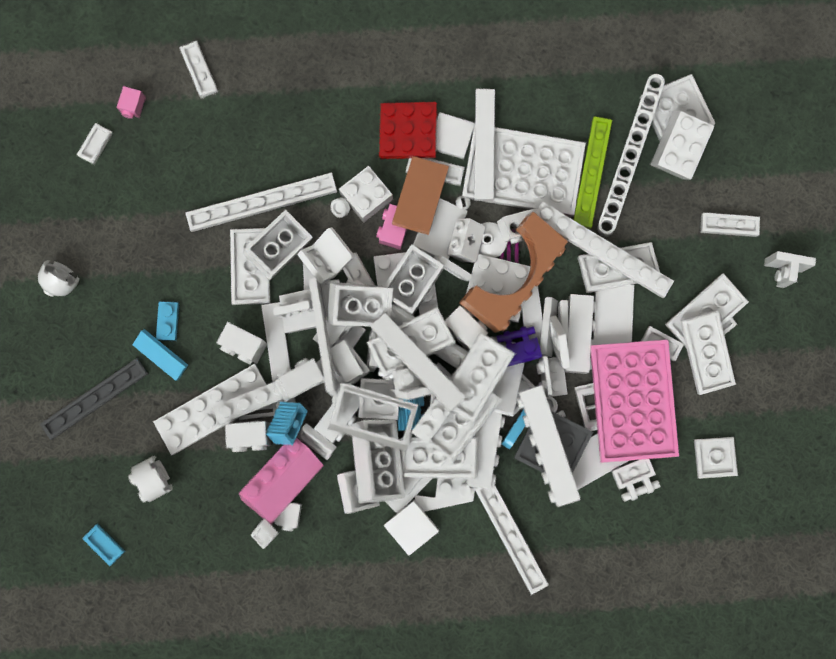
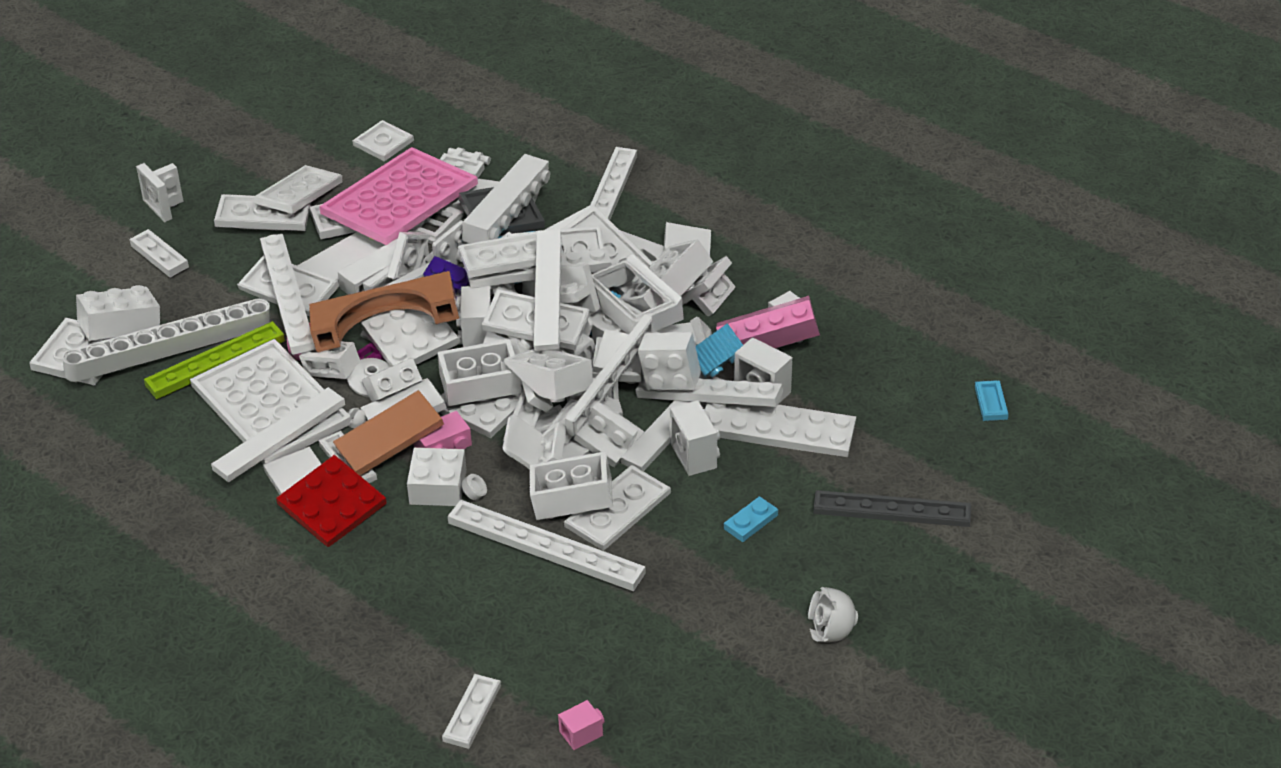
camera: 135 degrees left, 40 degrees down
(94, 143) = (664, 723): white tile -> none
(150, 479) = (893, 400): white brick -> none
(160, 355) = (787, 494): medium azure tile -> none
(264, 534) = (824, 304): white tile -> none
(453, 268) = (431, 368): white tile -> none

